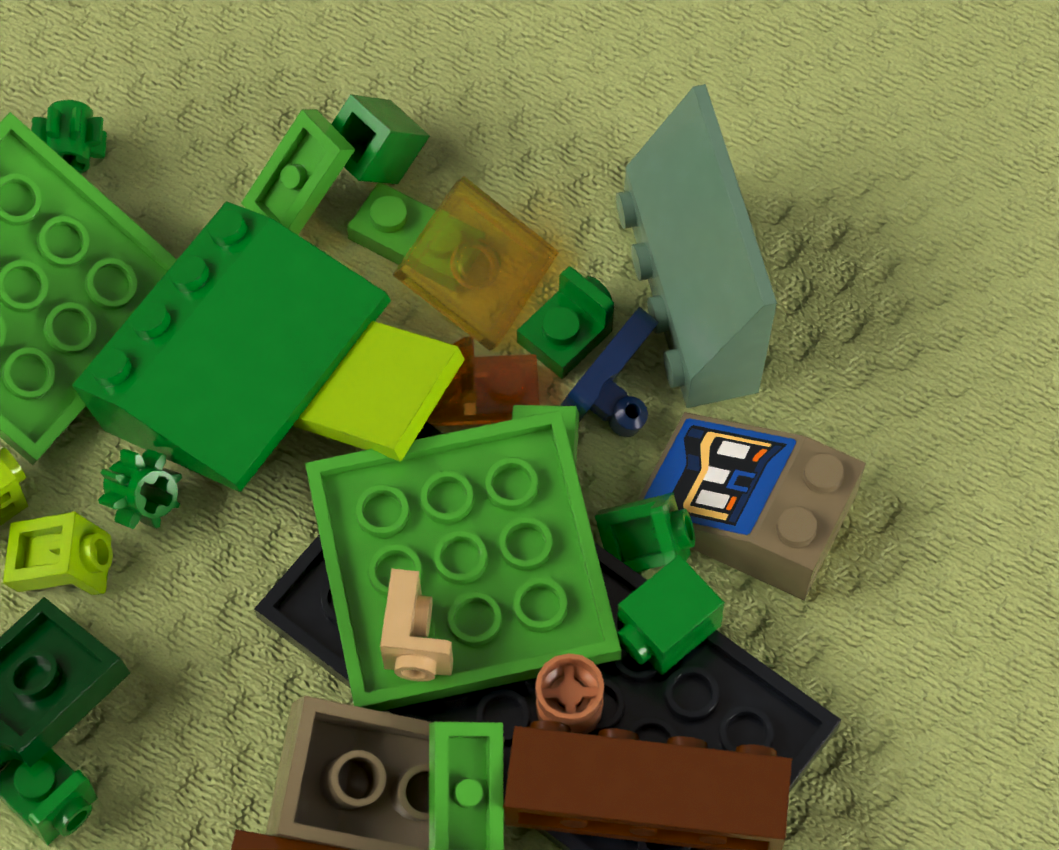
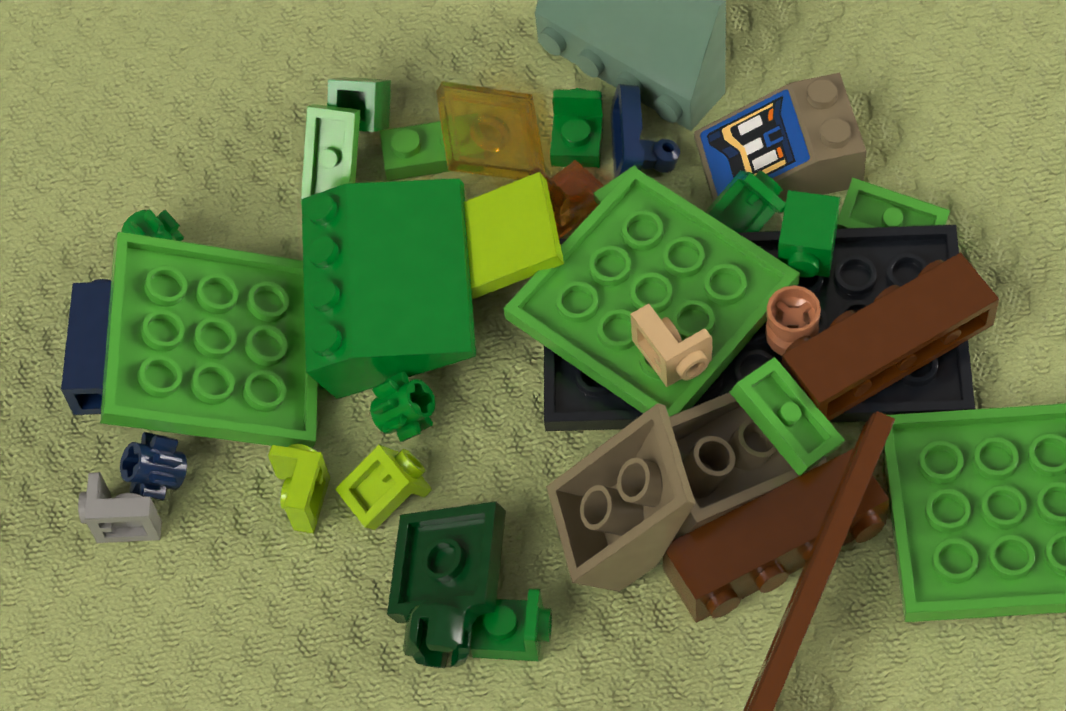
camera: 30 degrees left, 5 degrees down
(219, 755) = (622, 504): none -> dark tan slope
(781, 641) = (876, 206): none -> bright green plate

